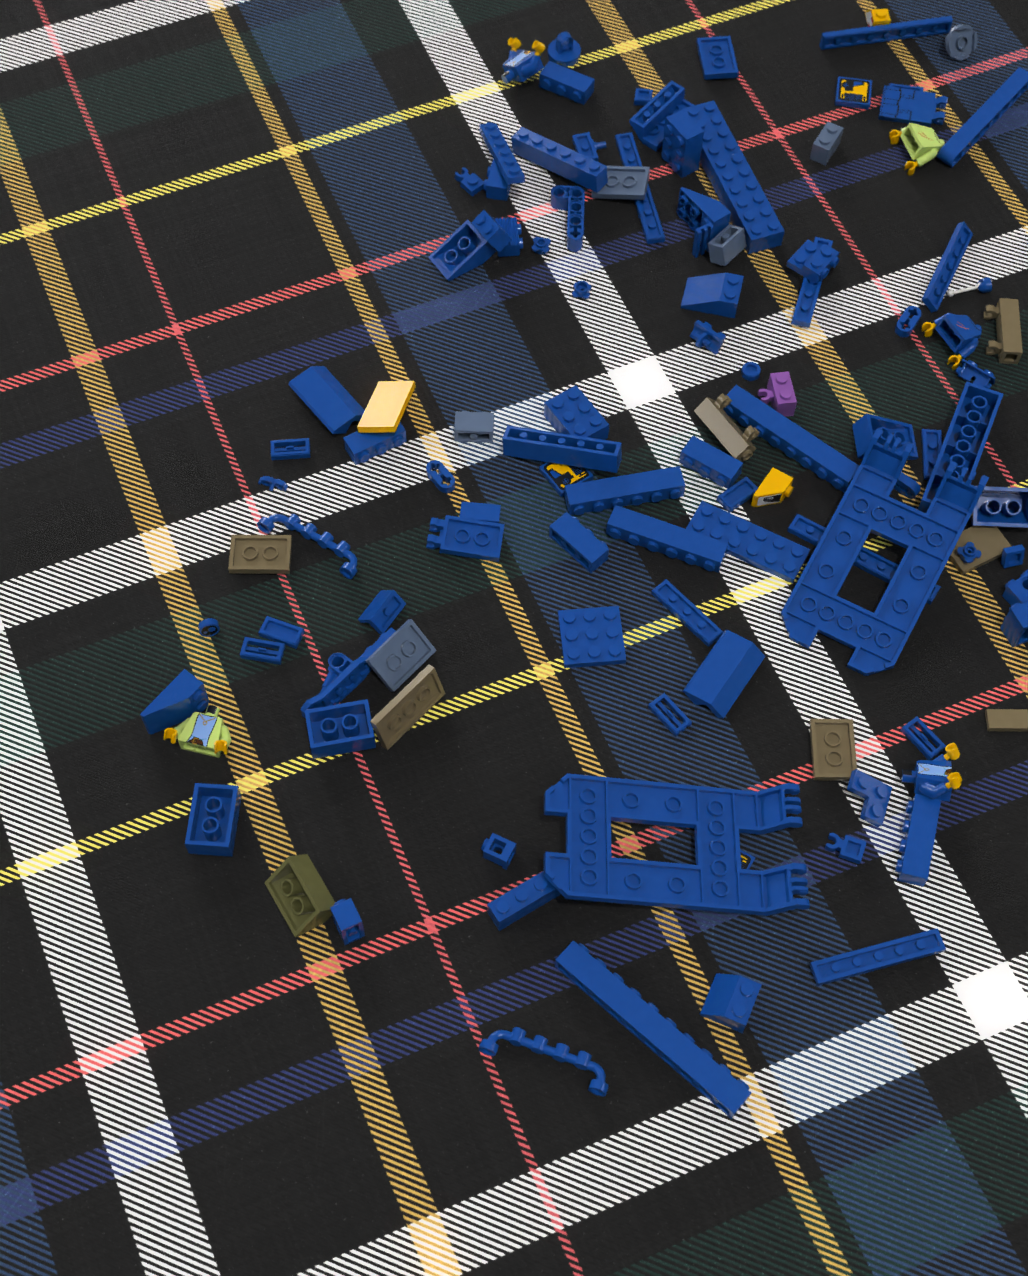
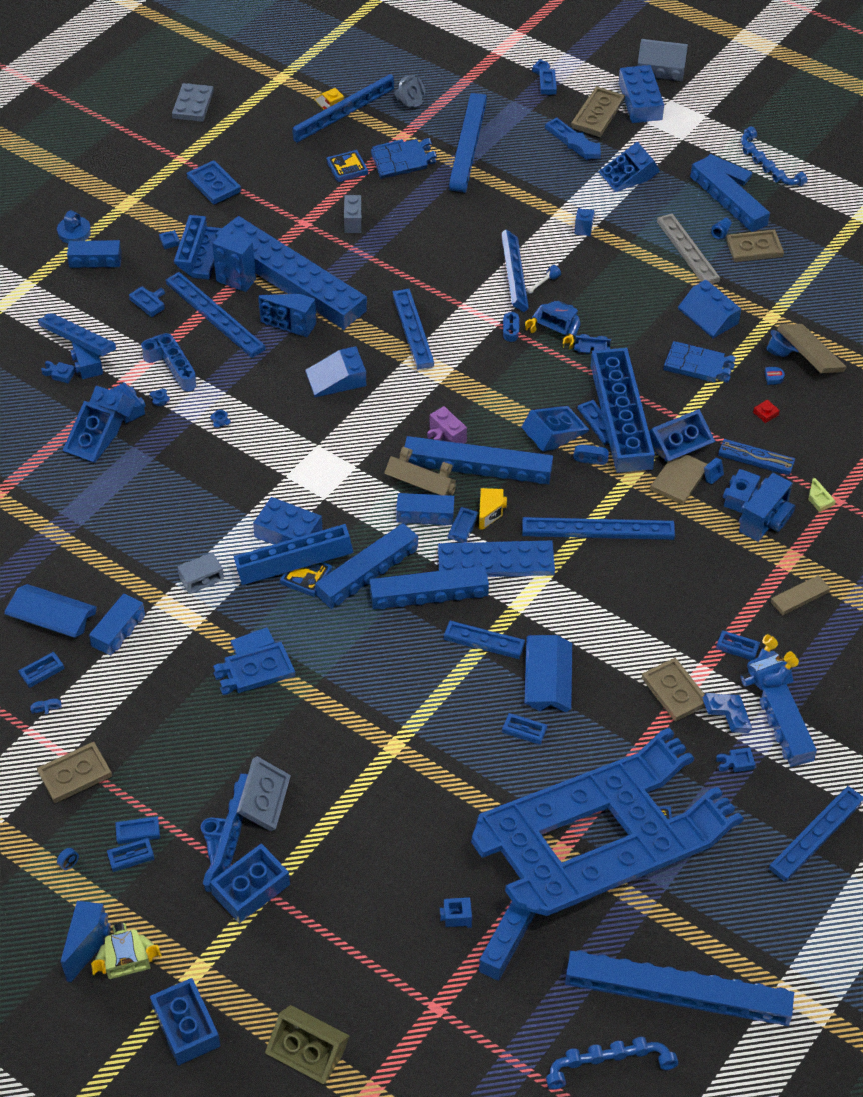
camera: 30 degrees left, 10 degrees down
(309, 531) = (127, 731): blue bar -> none
(347, 920) = (366, 1040): blue brick -> none
(382, 610) = (219, 765): blue panel -> none
(386, 407) = (112, 591): yellow tile -> none
(407, 707) = (299, 833): dark tan plate -> none
(437, 479) = (195, 631): blue beam -> none
(522, 63) = (46, 253): blue torso -> none
(559, 159) = (132, 318): blue brick -> none
(579, 542) = (356, 625): blue brick -> none
(591, 637) = (417, 698): blue plate -> none
(625, 183) = (198, 316): sand blue plate -> none
(703, 237) = (301, 332): blue tile -> none
(707, 337) = (355, 410): blue hips -> none
(727, 245) = (324, 328): sand blue brick -> none
(730, 1000) = (728, 930): blue slope -> none
(751, 371) = (408, 422): blue tile -> none
(813, 261) = (405, 310): blue plate -> none
(866, 509) = (644, 485): blue bracket -> none
(920, 142) = (430, 182): yellowish green torso -> none
(968, 557) = (679, 483): blue plate -> none
(1008, 331) = (595, 299): dark tan brick -> none

